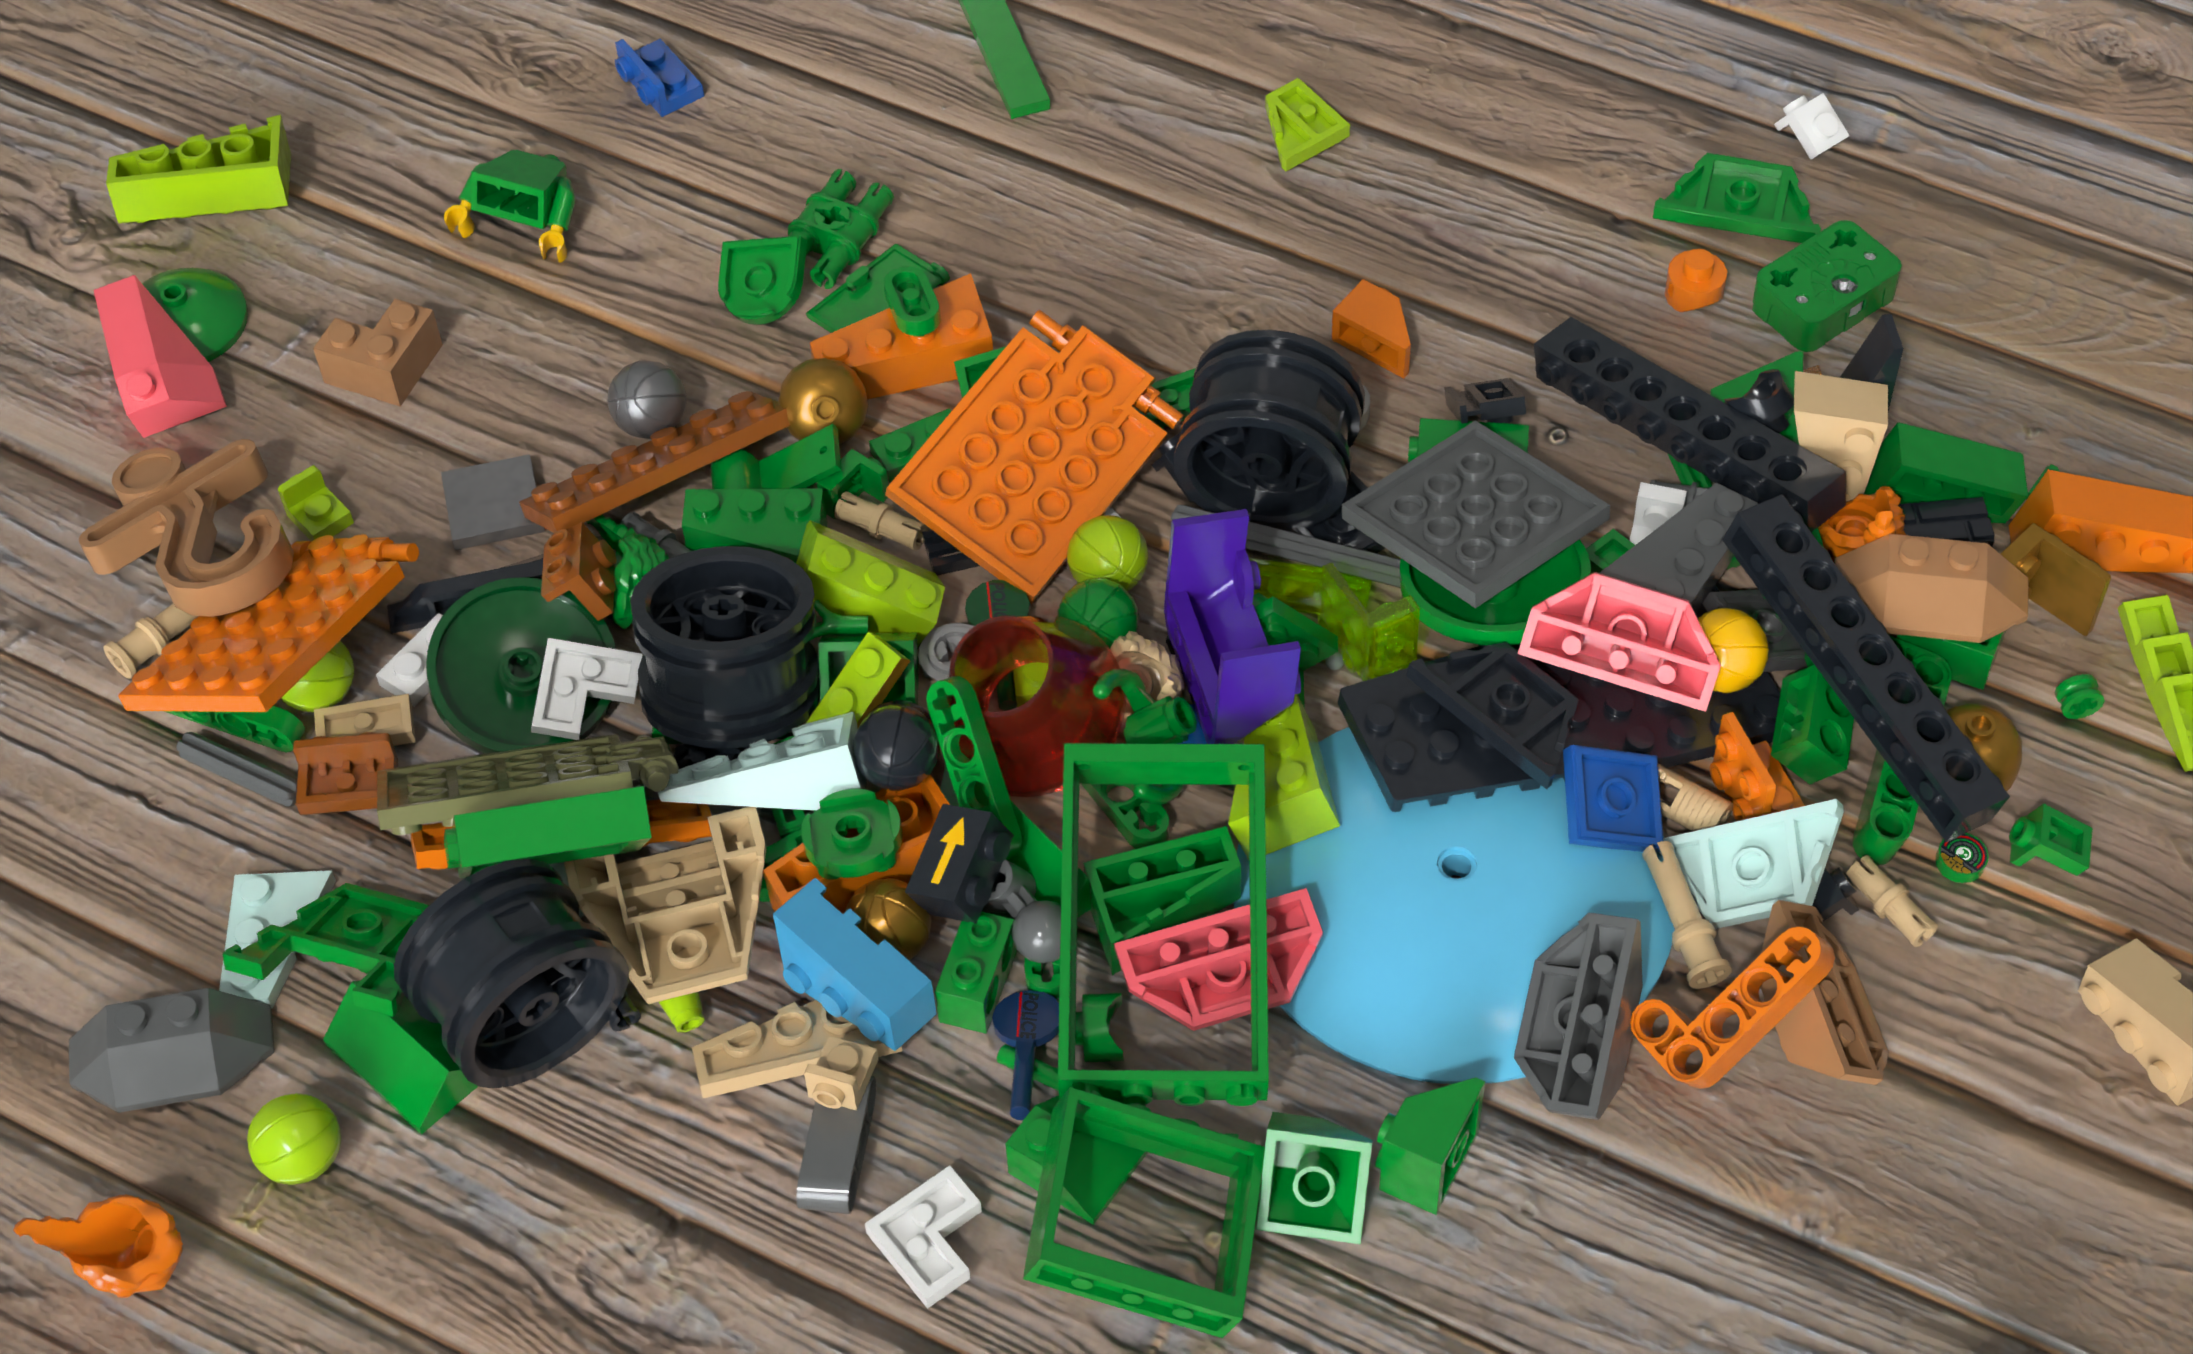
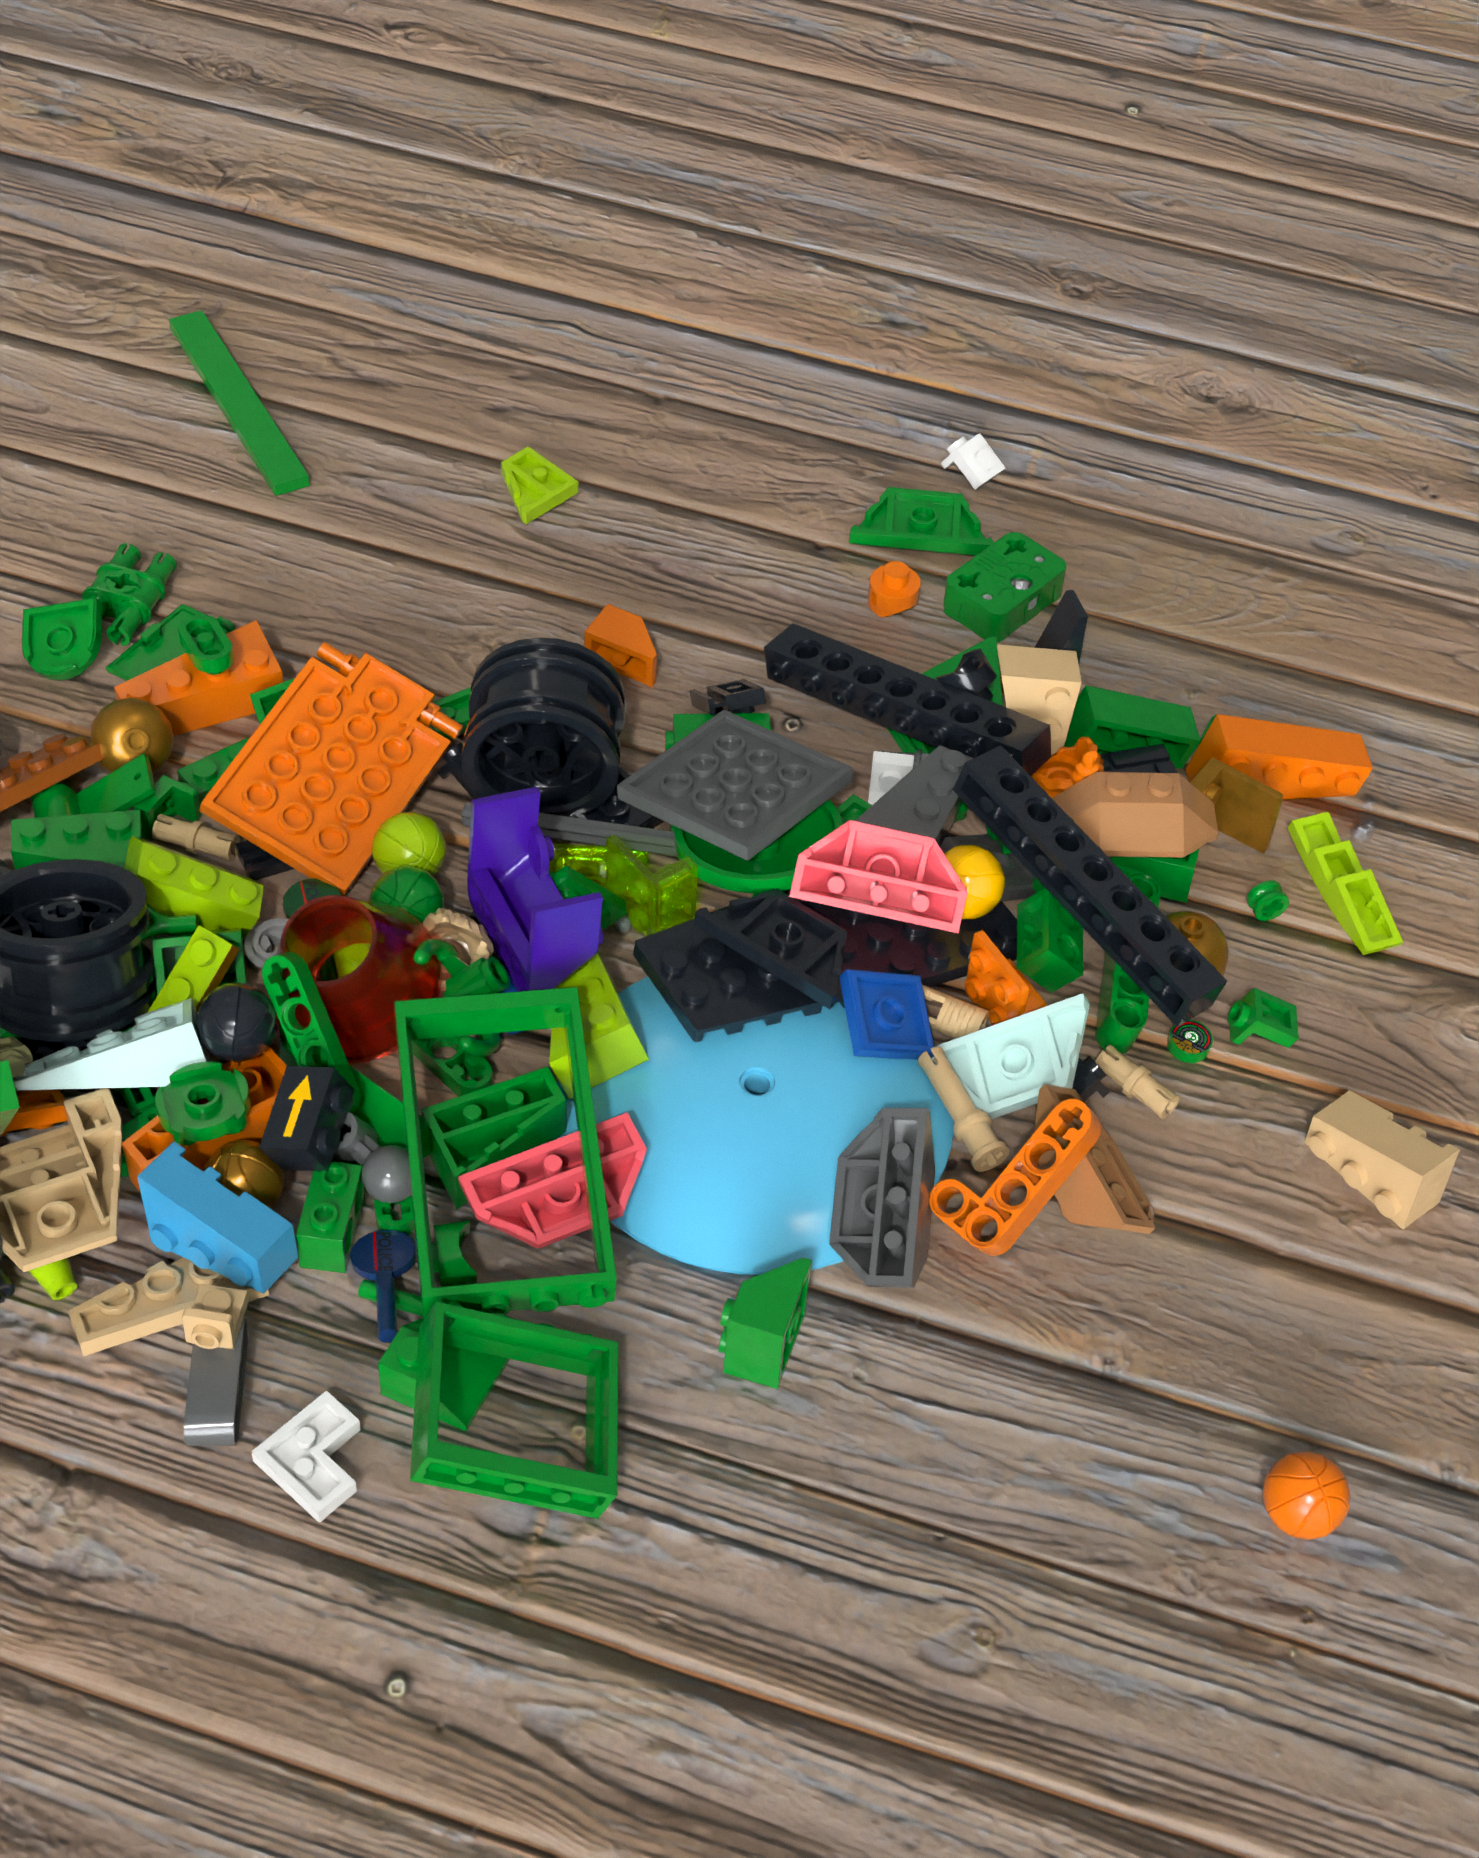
camera: 15 degrees left, 5 degrees down
(1313, 1179) = (666, 1367): green slope -> none

